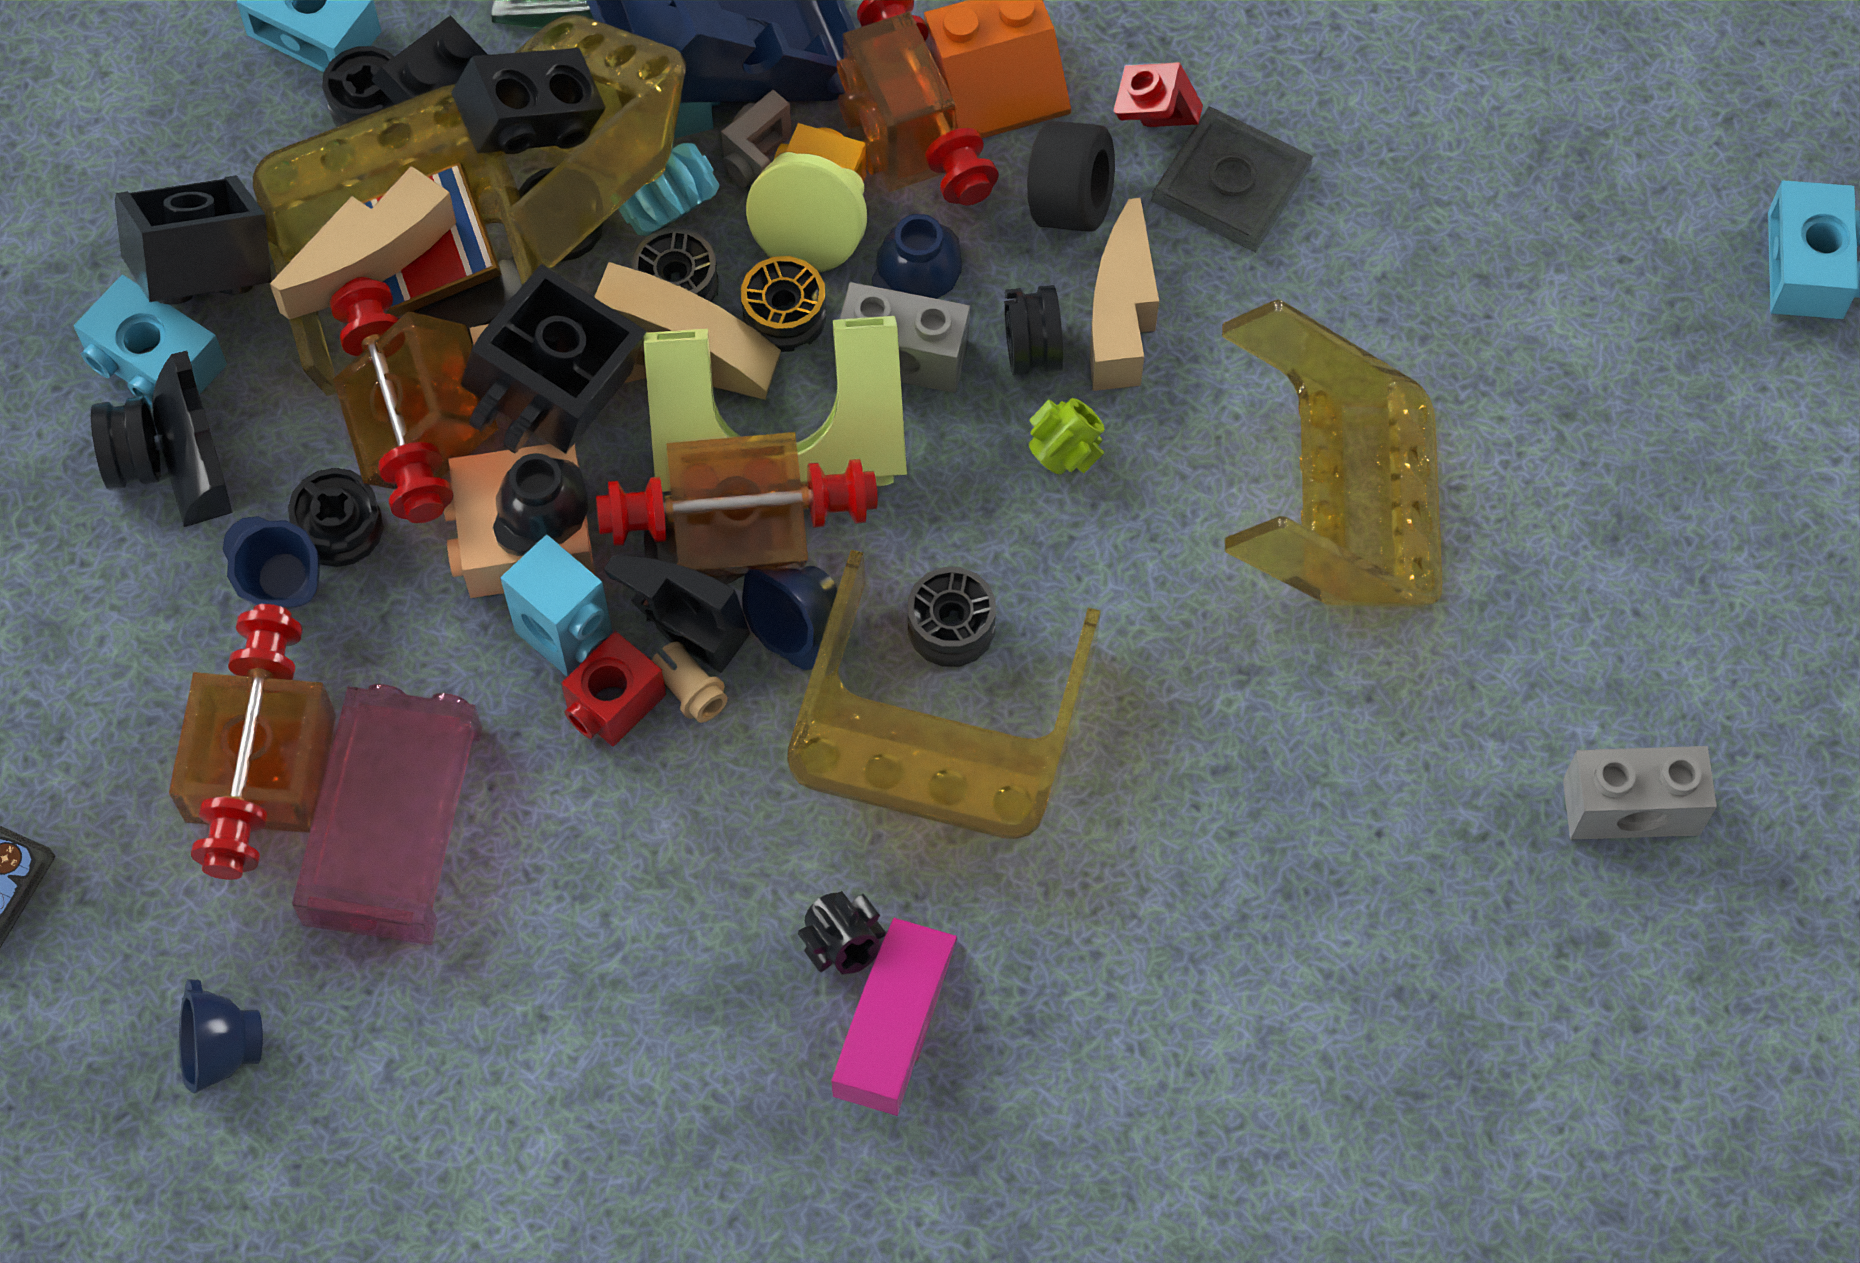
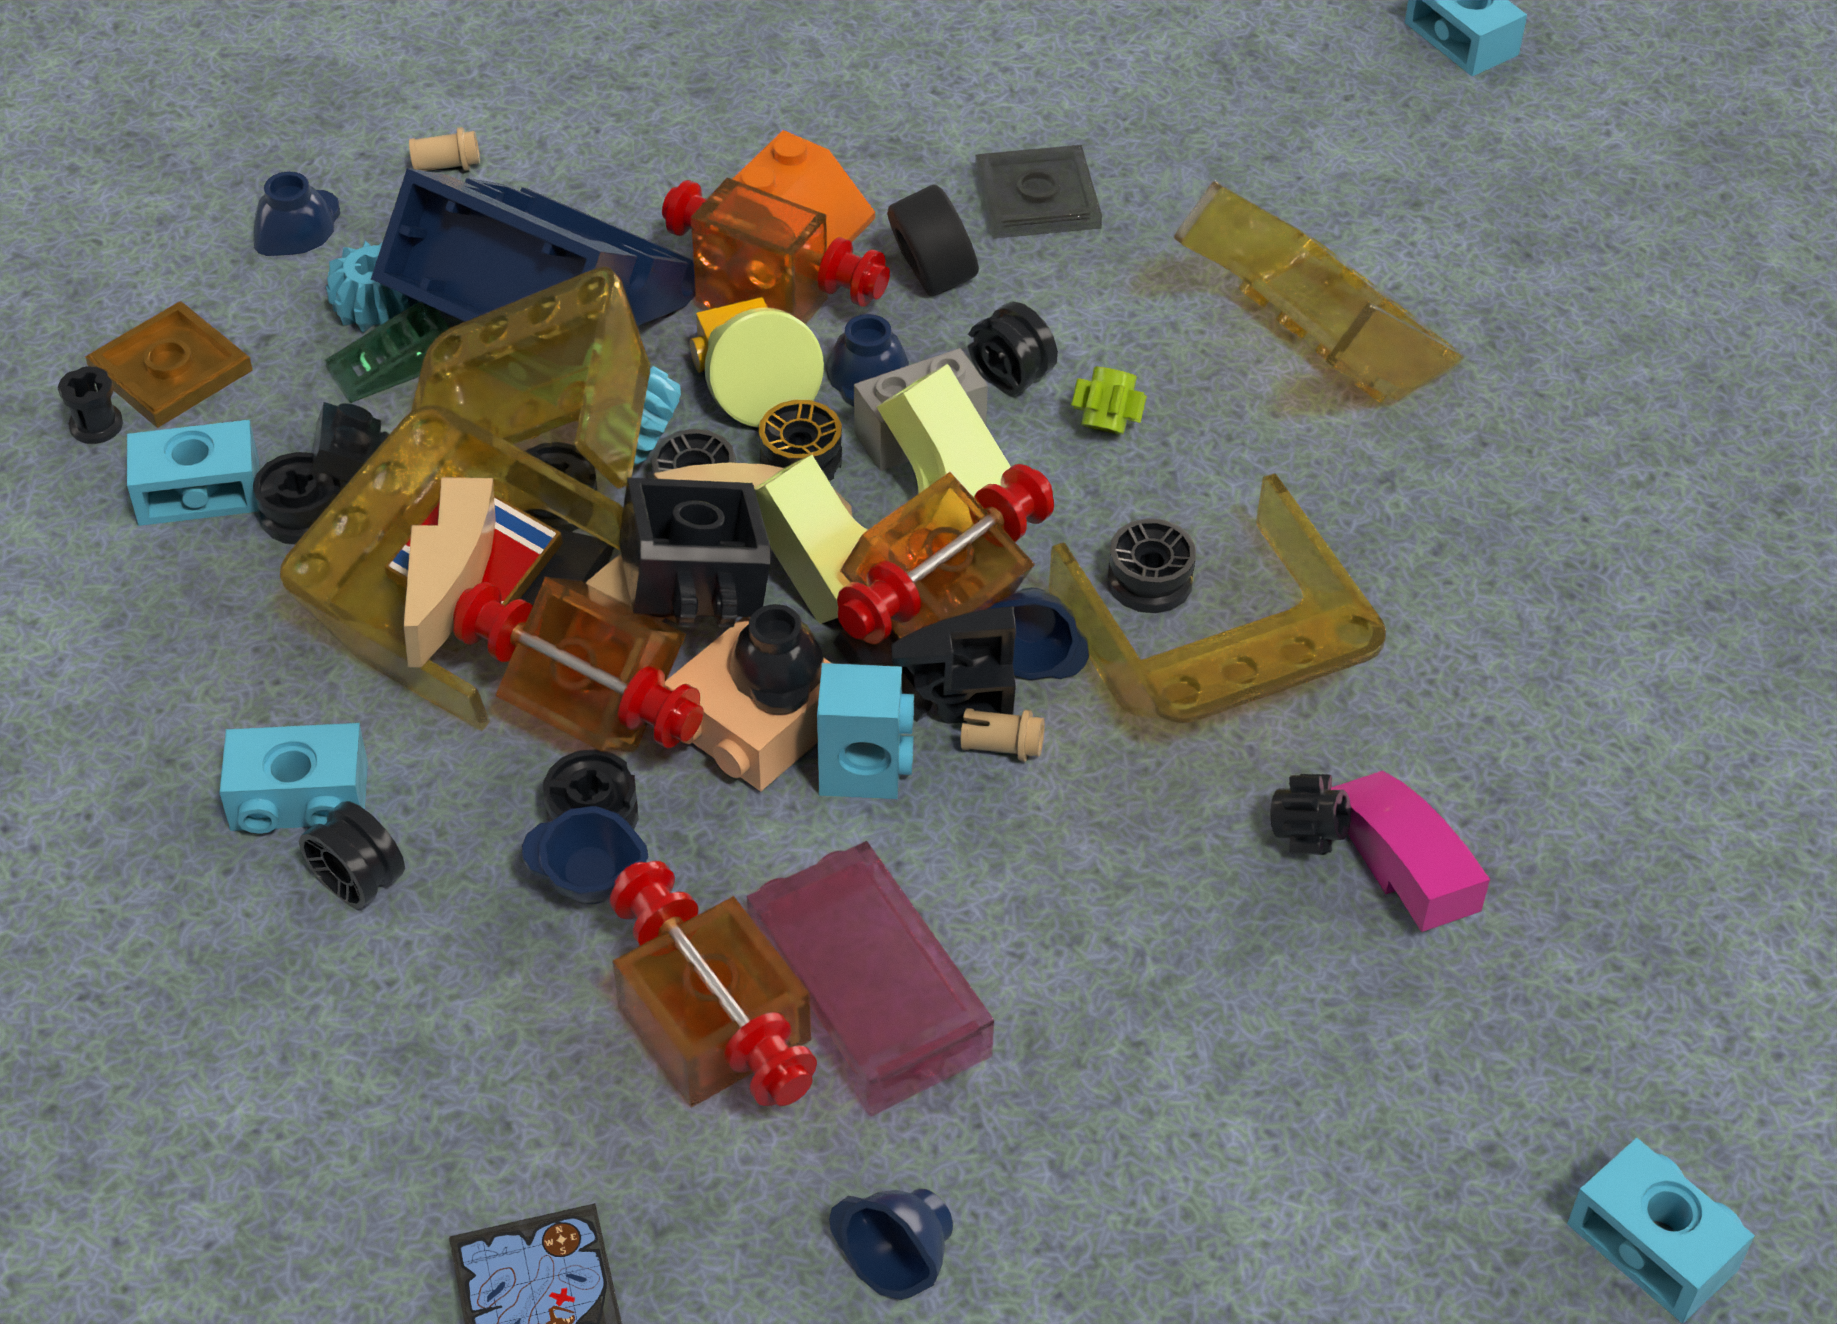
camera: 40 degrees left, 15 degrees down
(188, 443) = (433, 831): black slope -> none
(193, 239) = (271, 662): black hinge -> none
(528, 100) = (493, 382): black brick -> none
(612, 665) = (953, 771): red brick -> none
(753, 136) = (663, 352): light grey bracket -> none
(1123, 303) = (1059, 296): tan slope -> none
(1157, 96) = (943, 155): red bracket -> none
(1639, 792) = (1725, 377): light grey brick -> none

